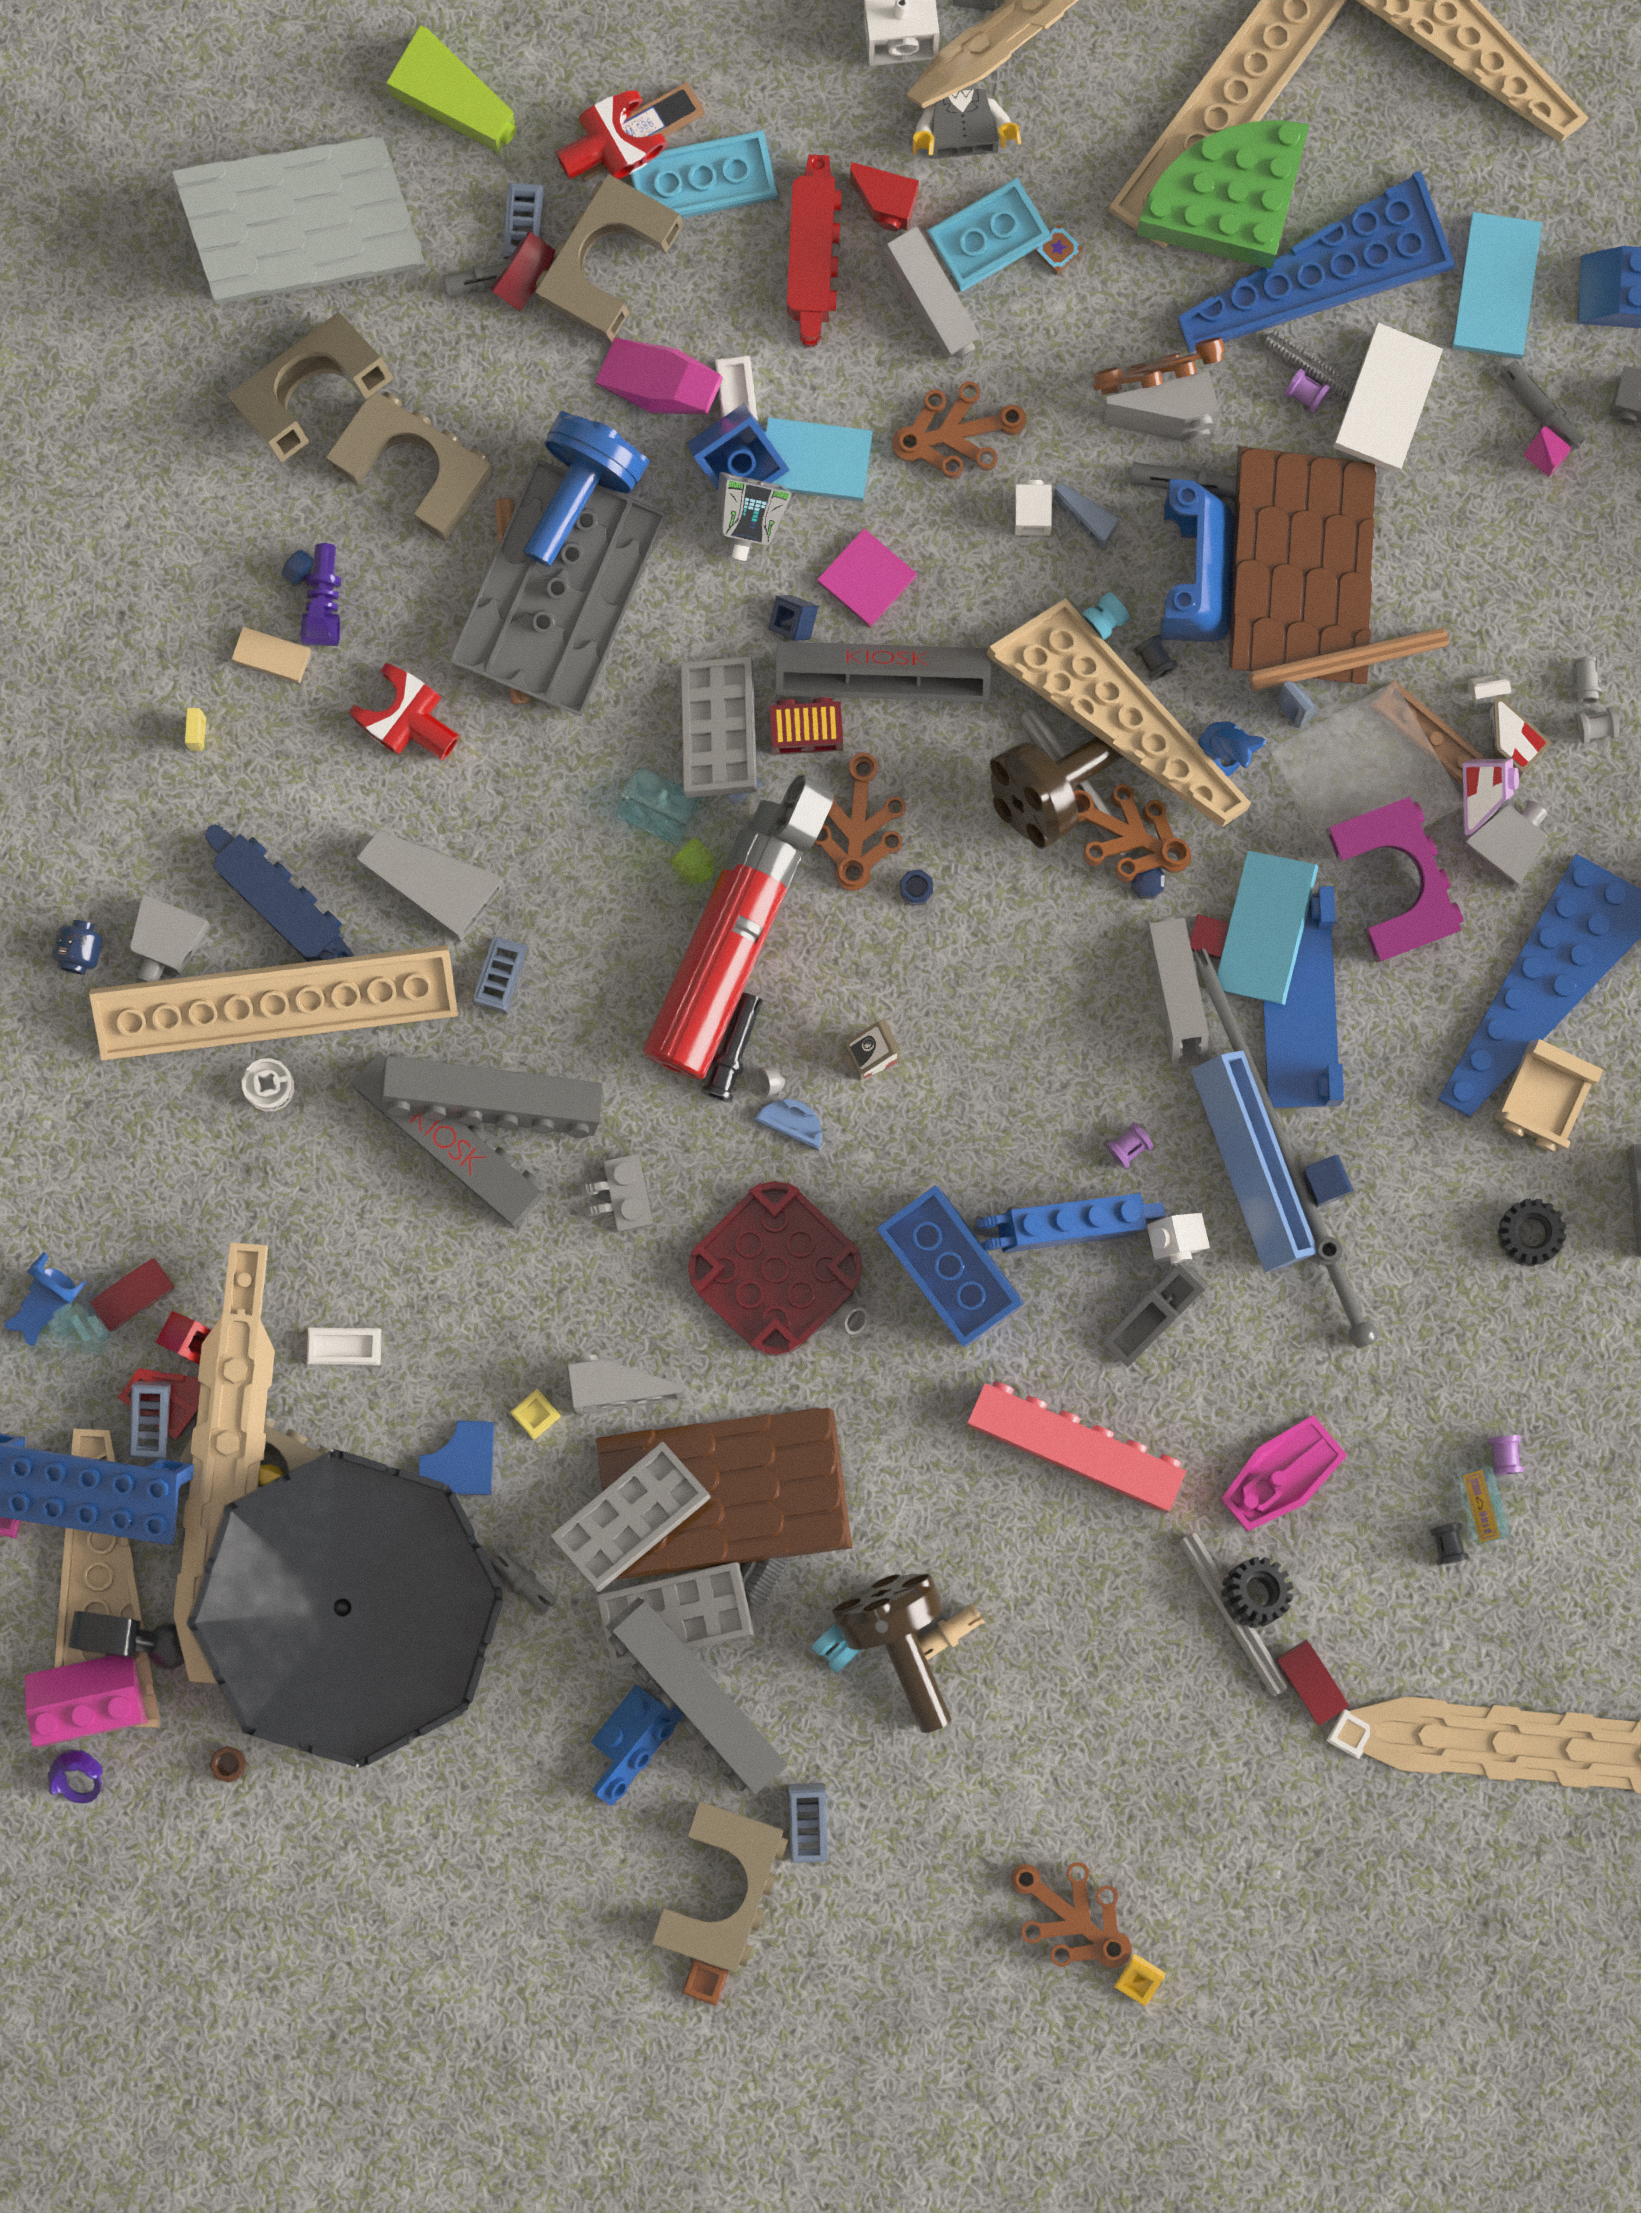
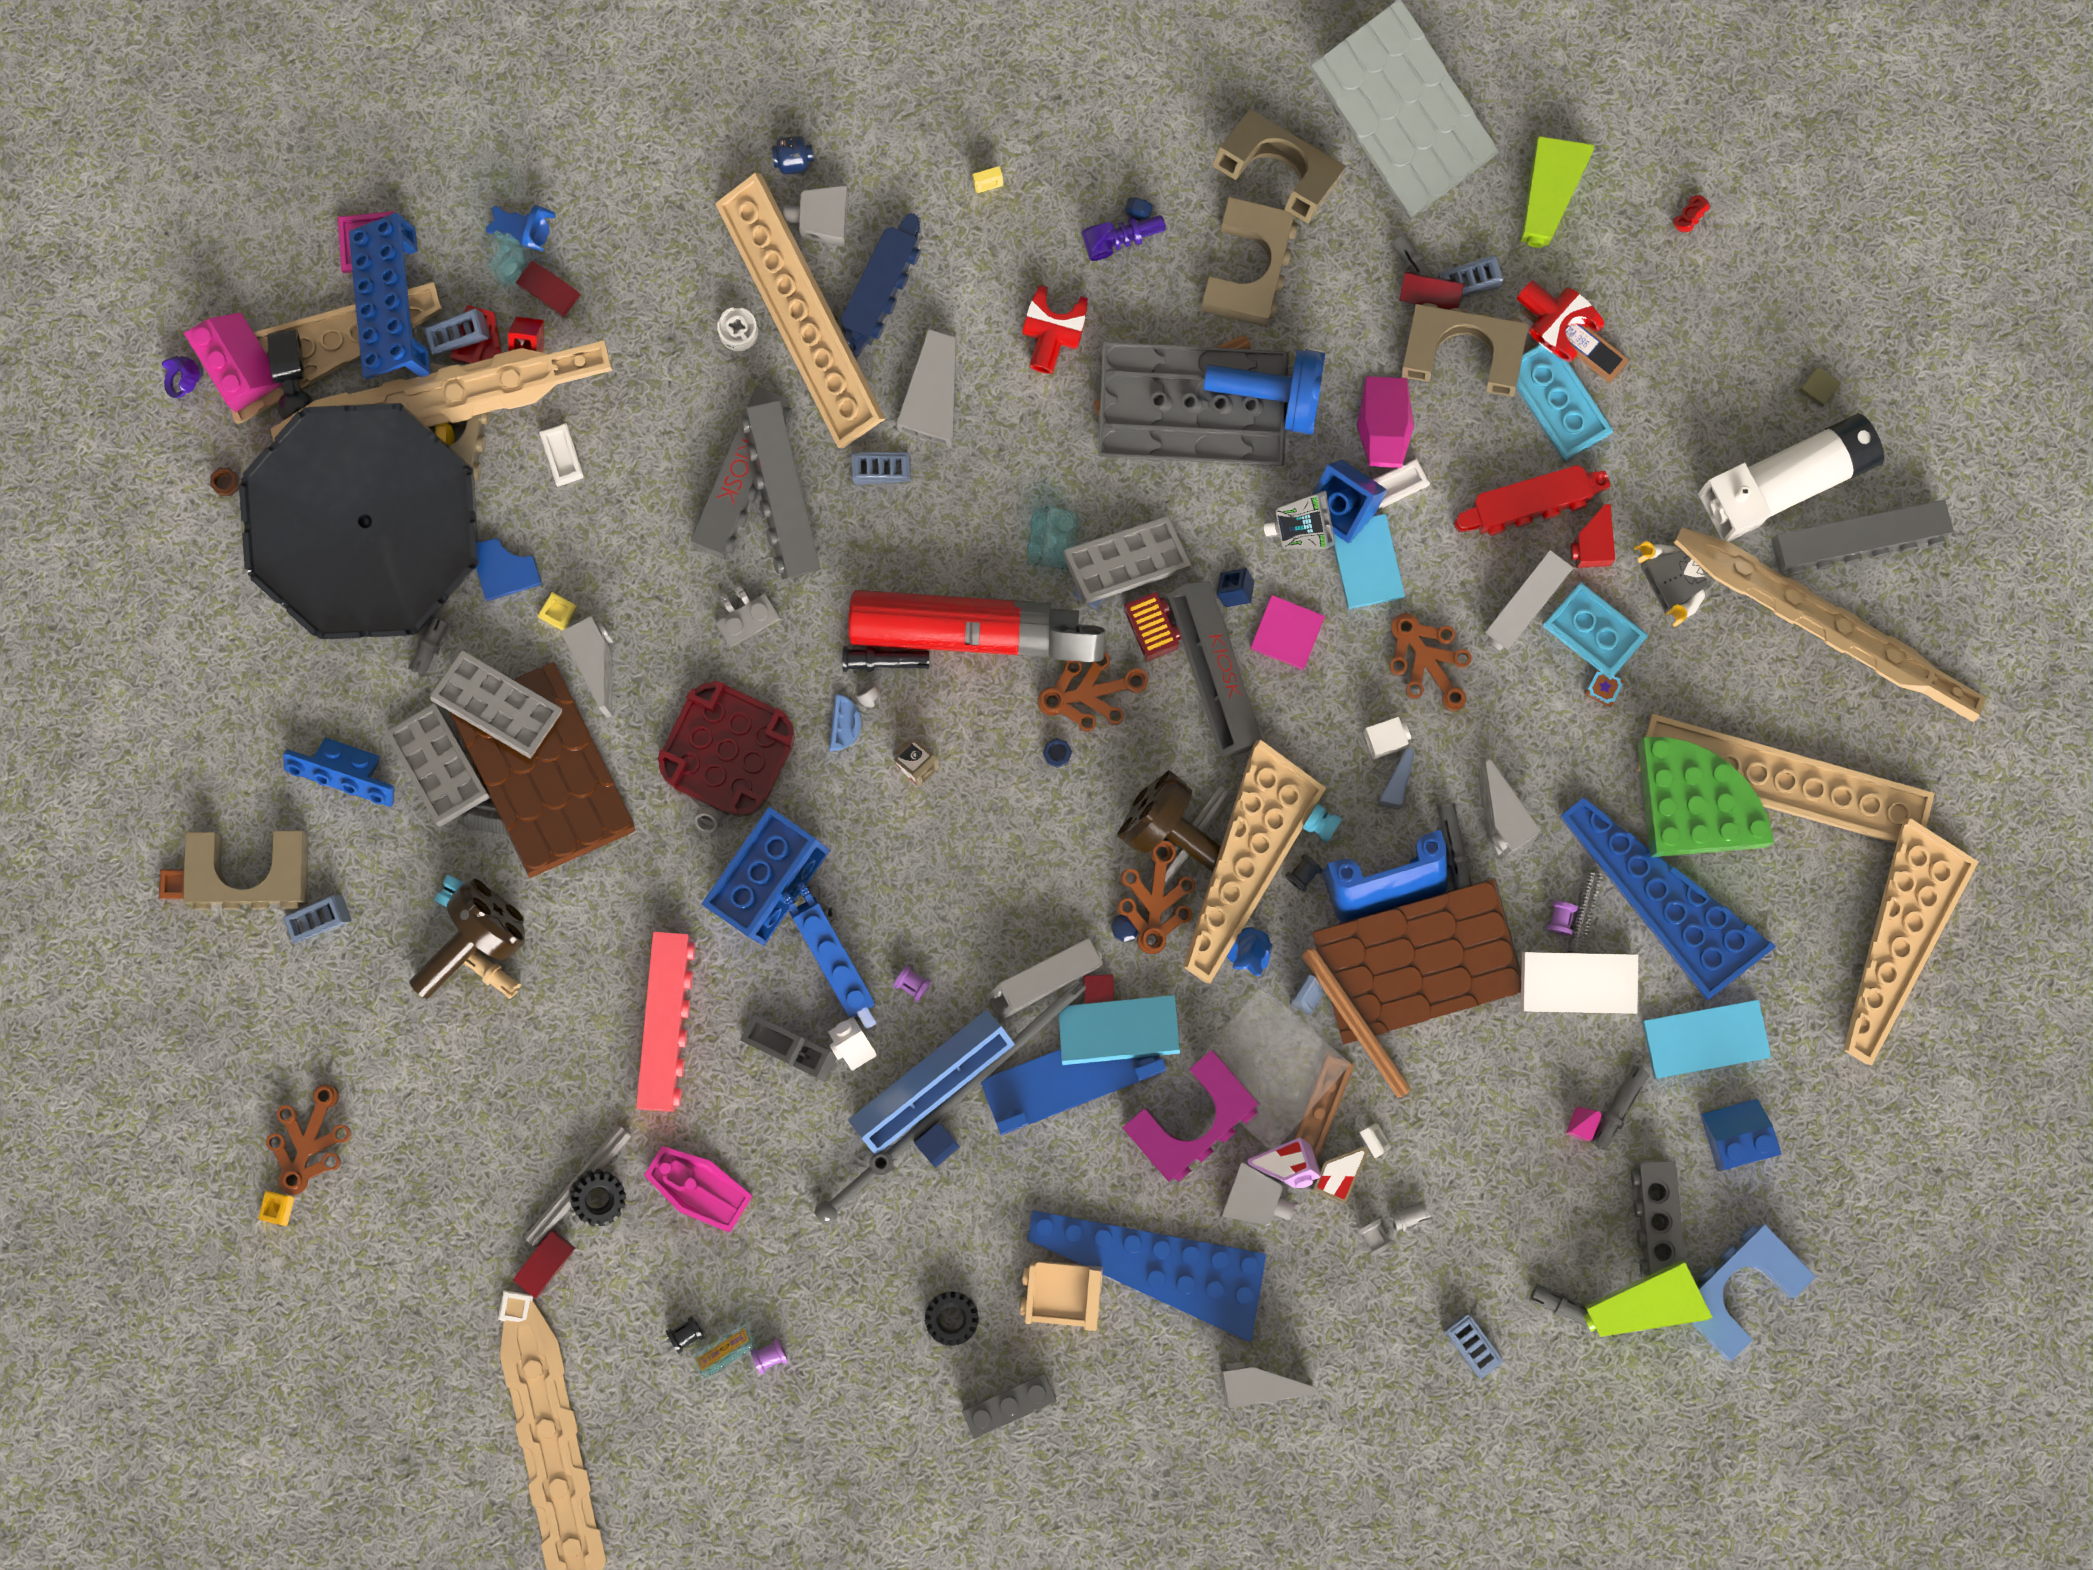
camera: 70 degrees right, 0 degrees up
(271, 655) = (1066, 215): tan tile -> none
(693, 863) = (1016, 579): clear neon green plate -> none
(696, 1696) = (377, 799): brick -> none
(1150, 375) = (1540, 804): dark orange plant -> none

